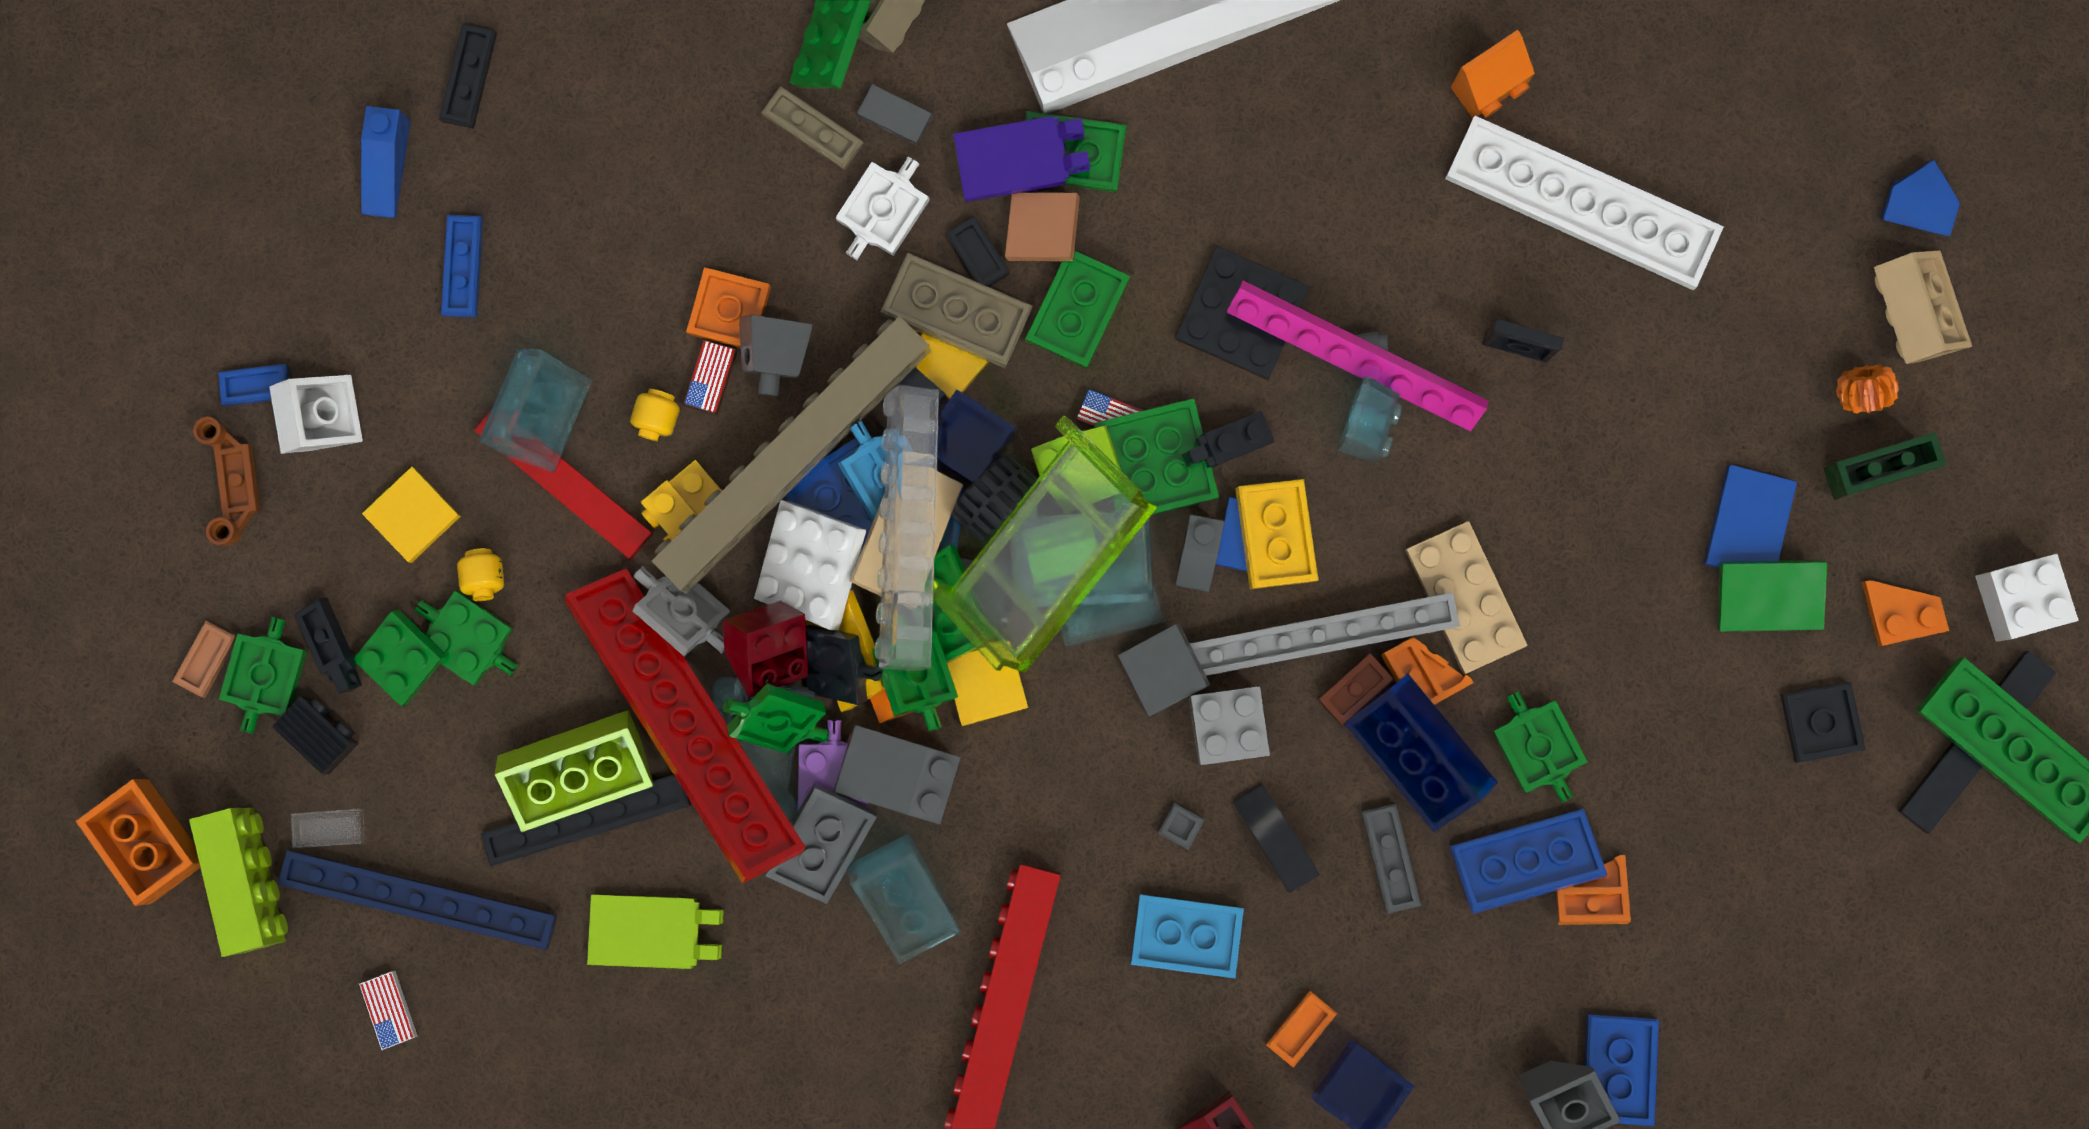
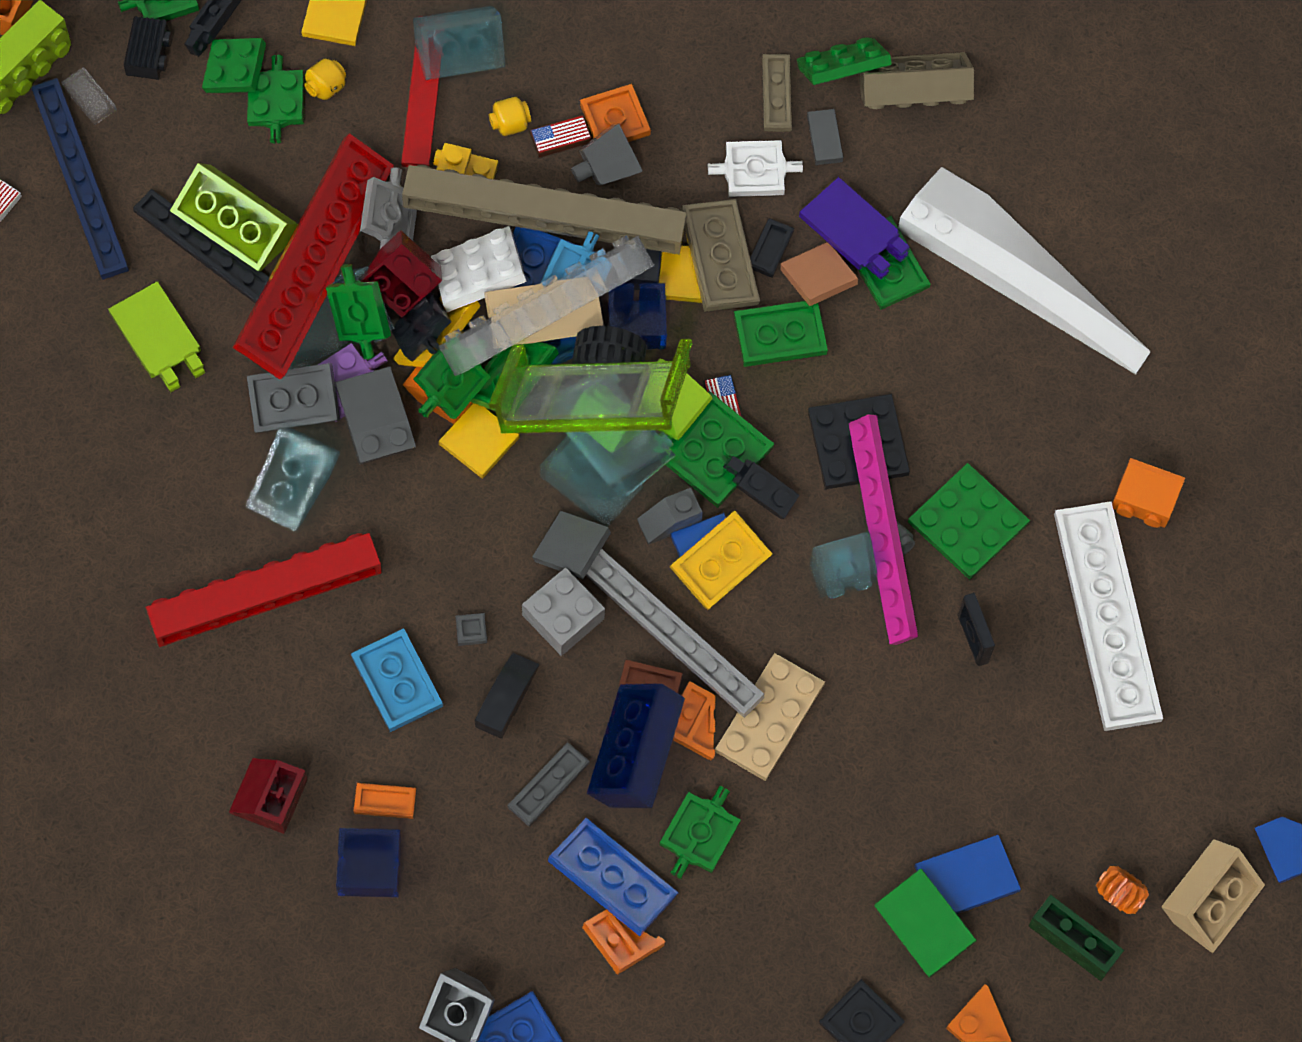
camera: 45 degrees right, 15 degrees down
(1397, 265) = (968, 521): none -> green plate

